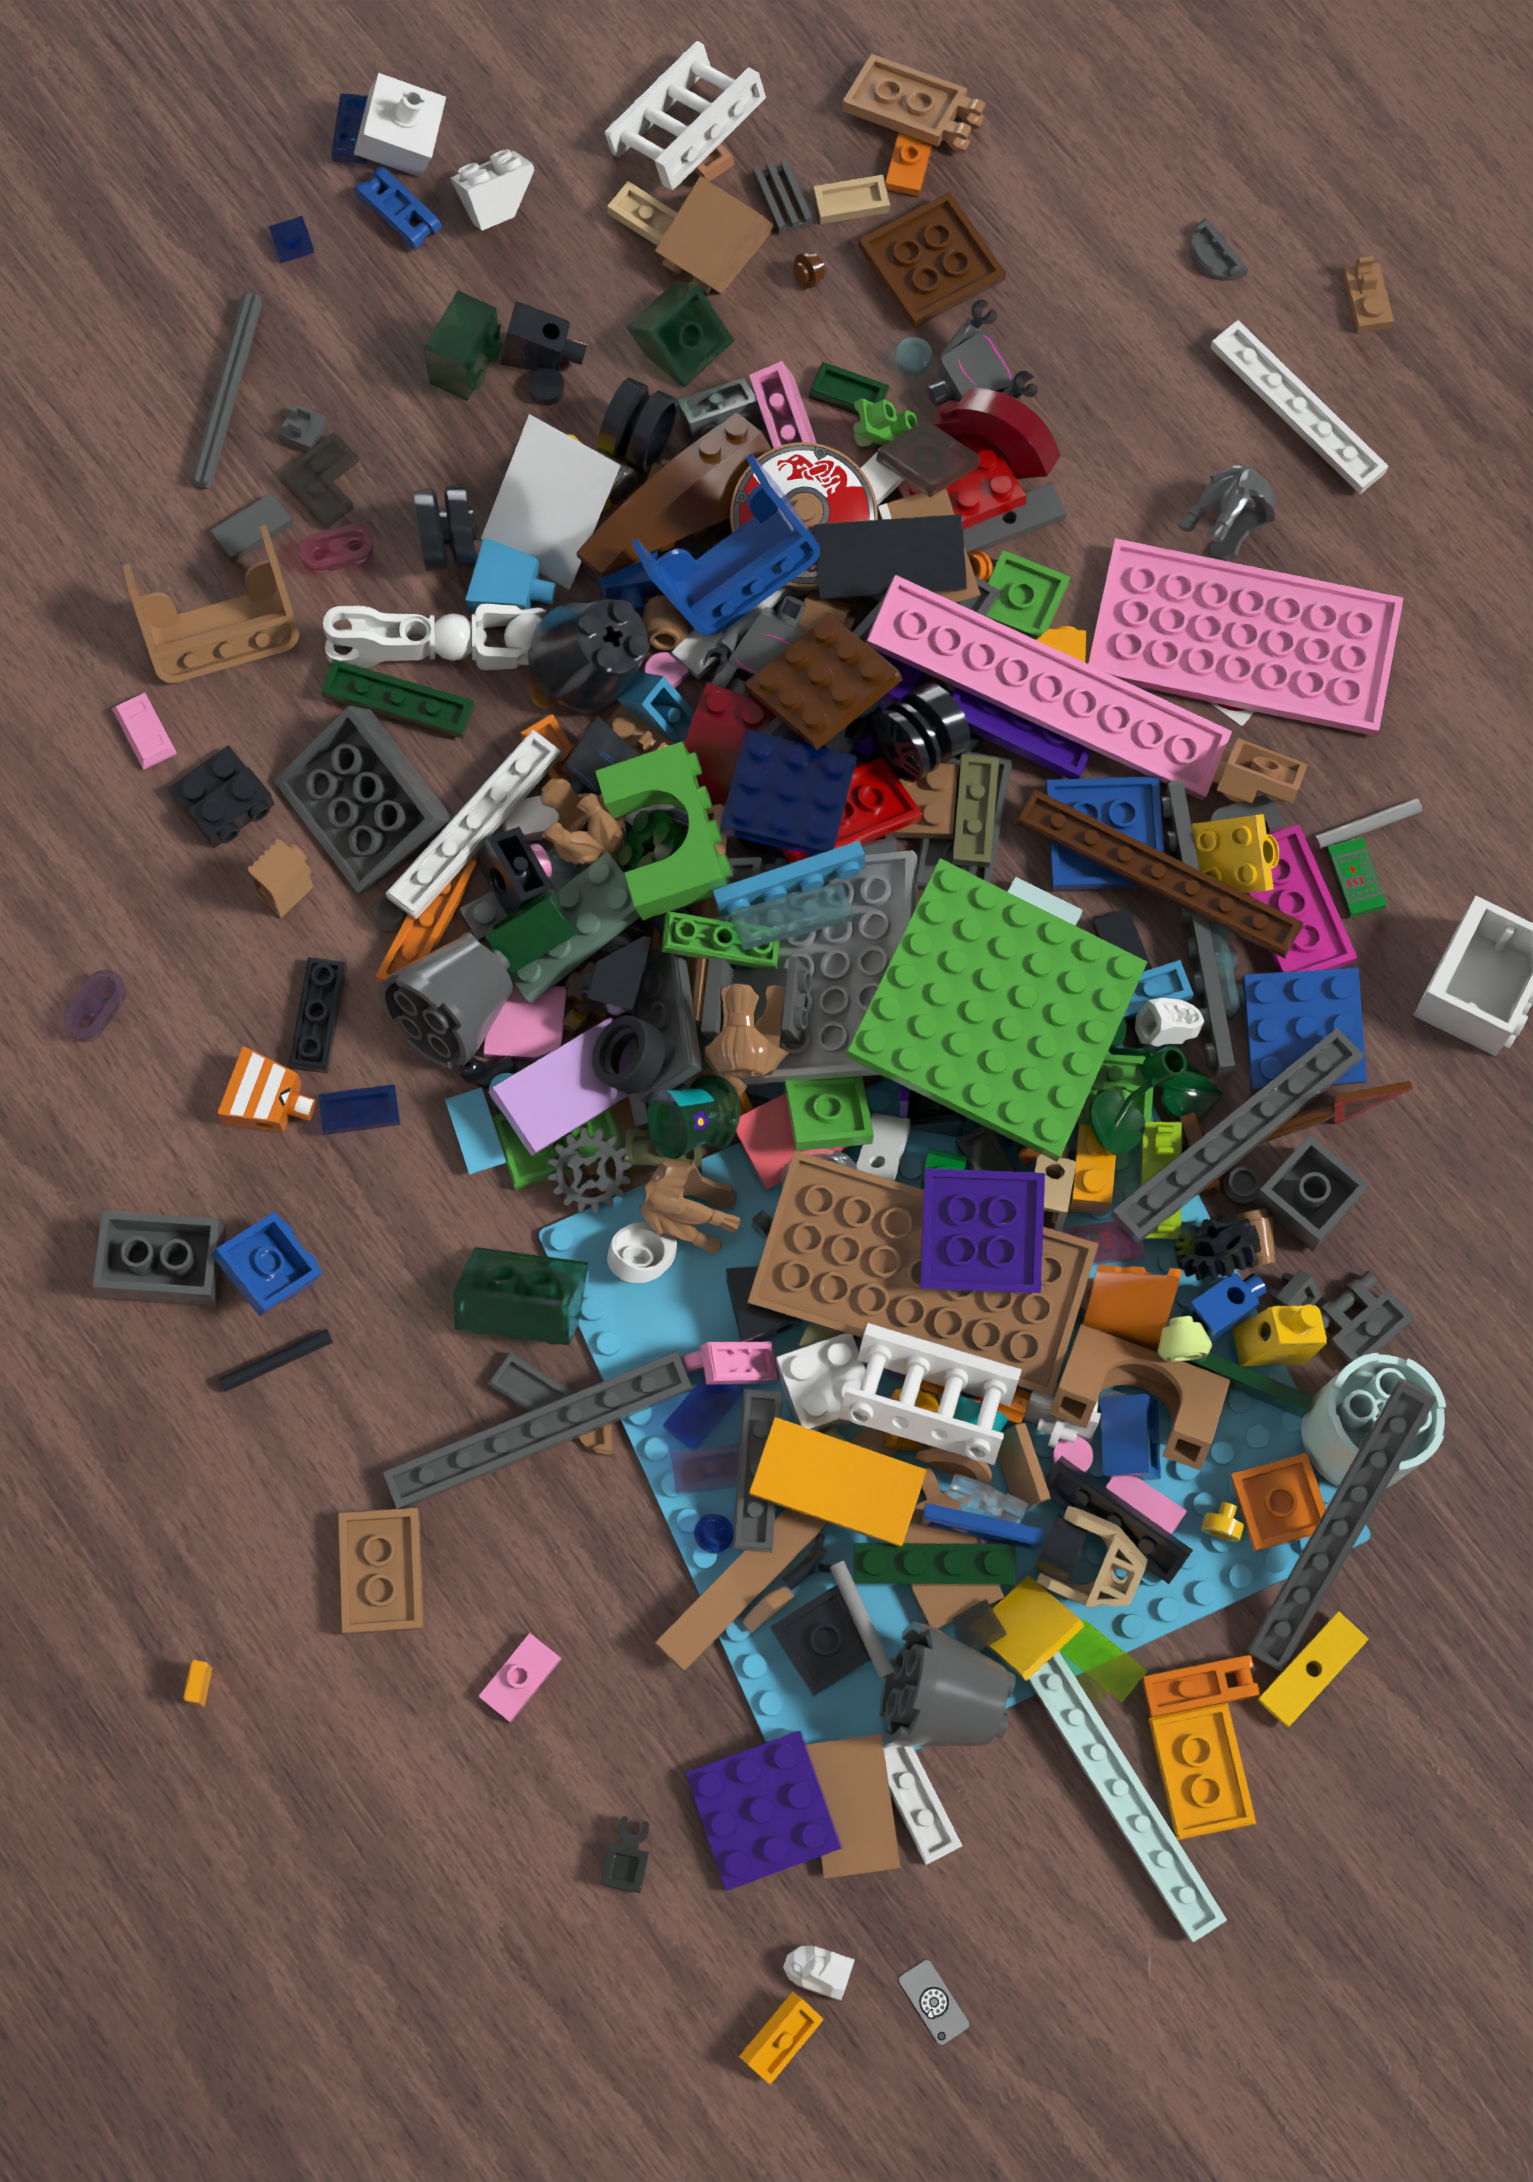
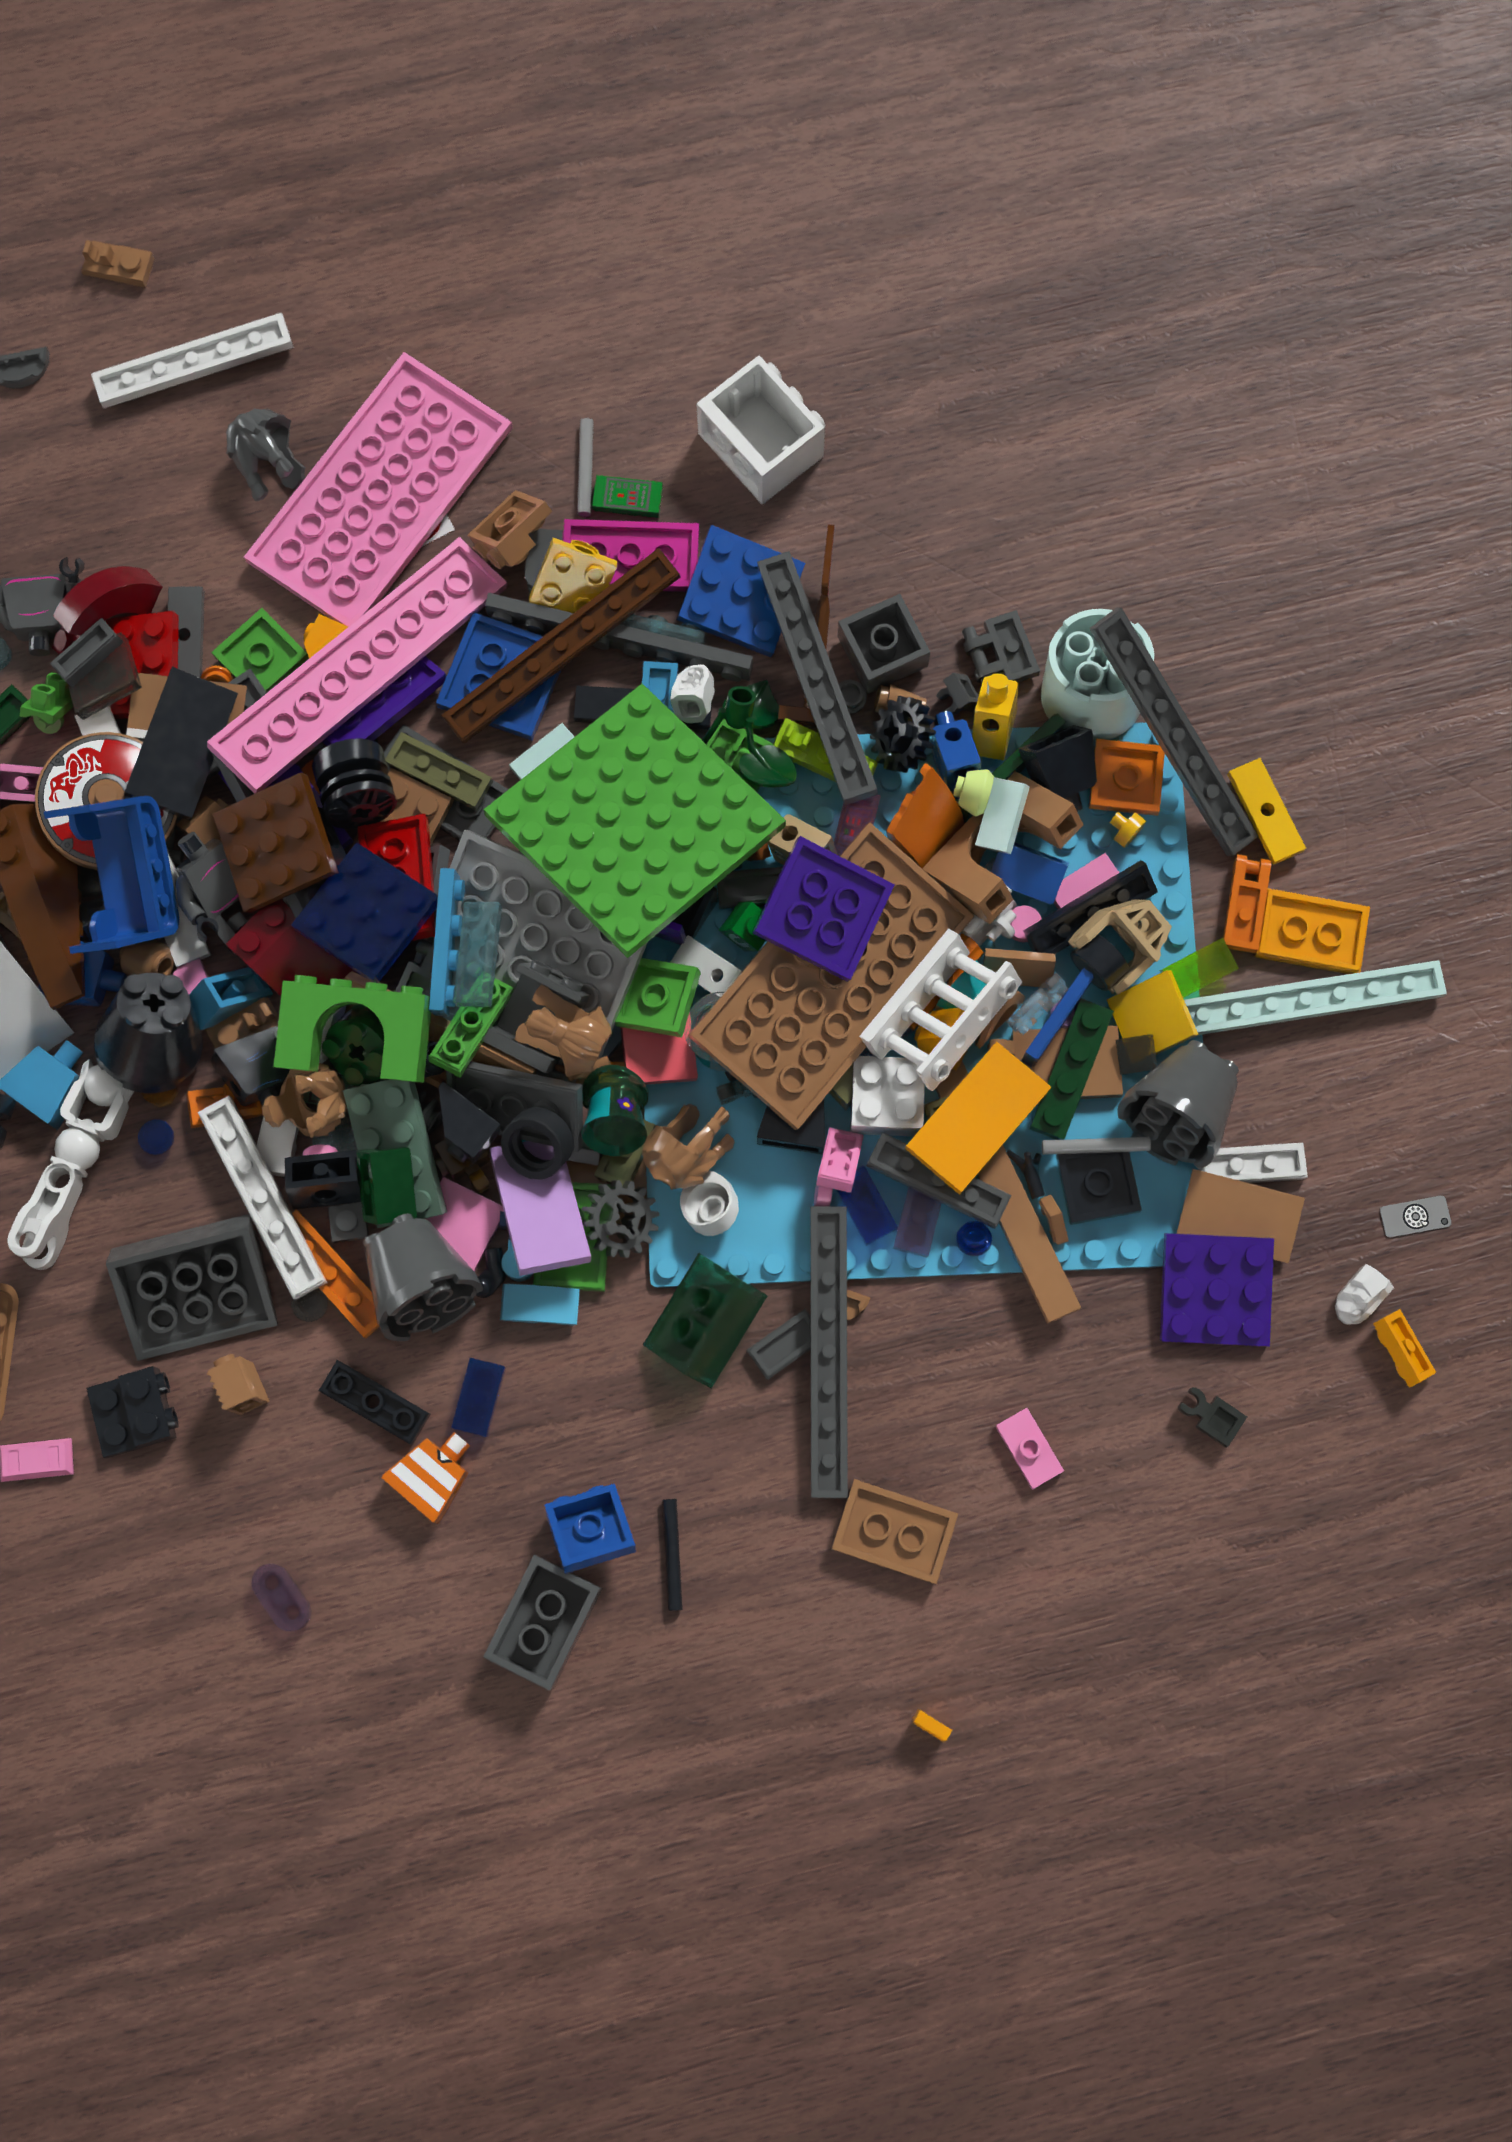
camera: 65 degrees left, 5 degrees up
(398, 698) = (110, 1221): dark green plate -> none
(496, 705) = (156, 1137): none -> clear blue plate
(944, 434) = (86, 652): none -> dark grey tile
(1093, 1174) = (800, 803): light orange brick -> none
(1170, 1380) = (1002, 815): none -> light aqua tile
(1257, 1425) = (1063, 762): none -> black torso

